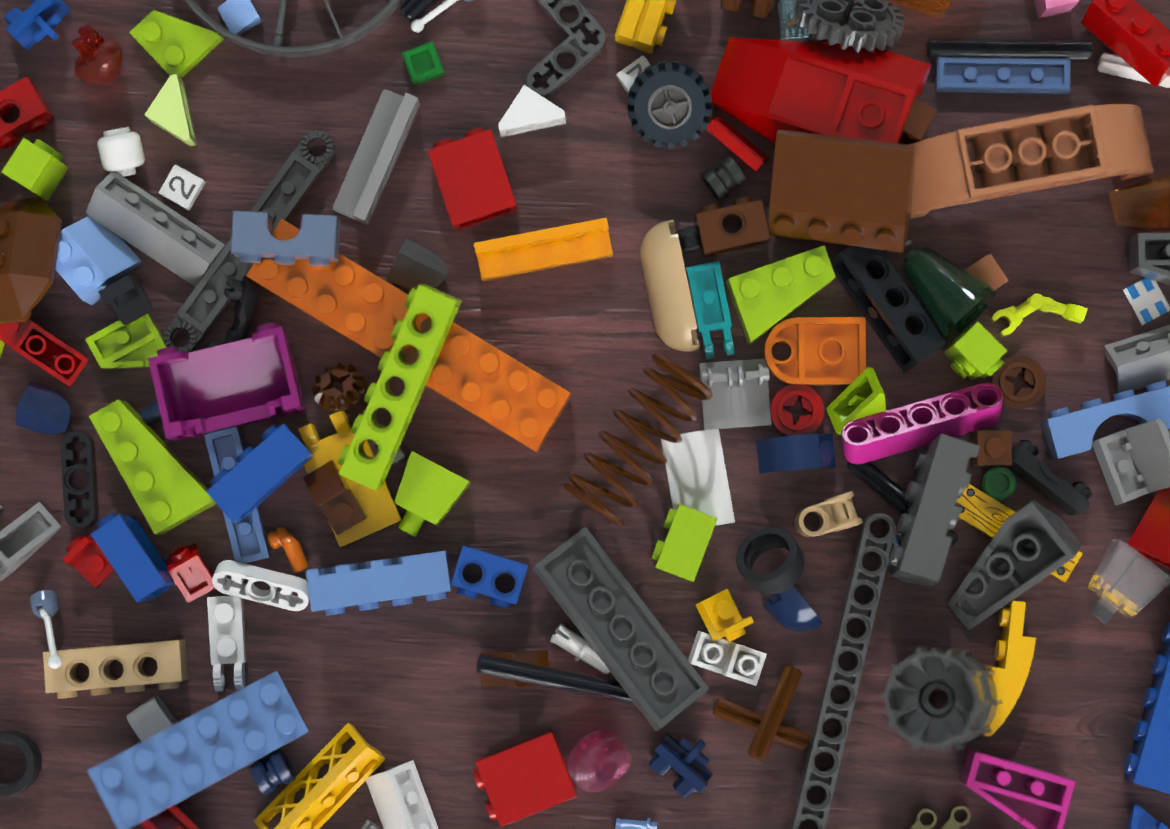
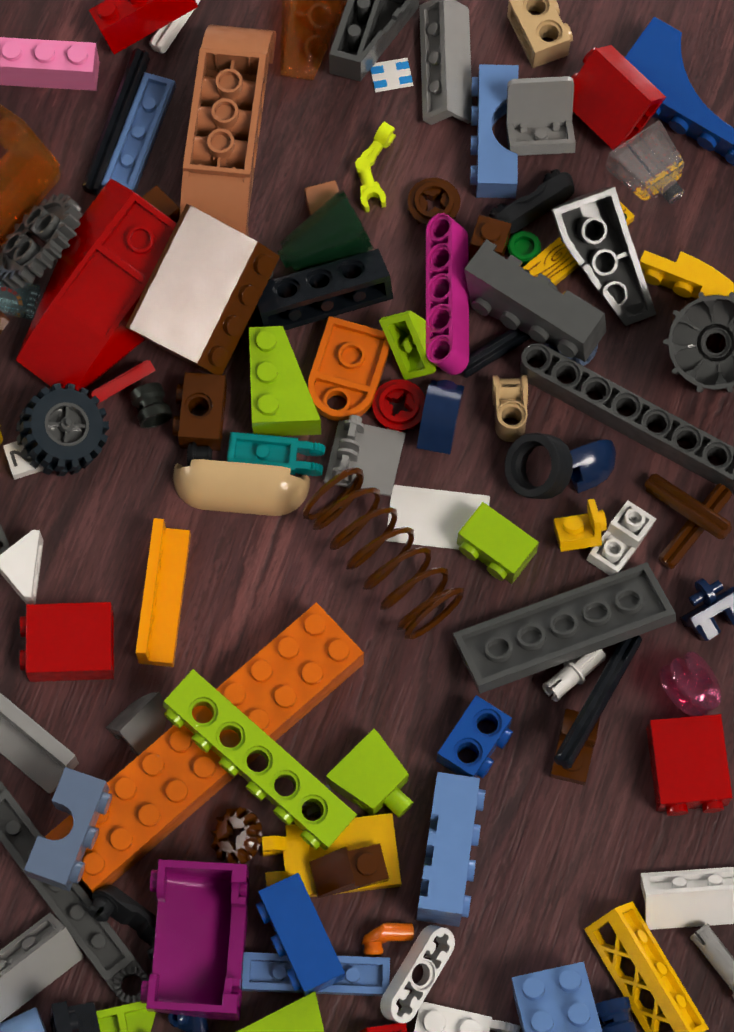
camera: 80 degrees left, 15 degrees down
(975, 353) = (394, 225): lime brick -> none

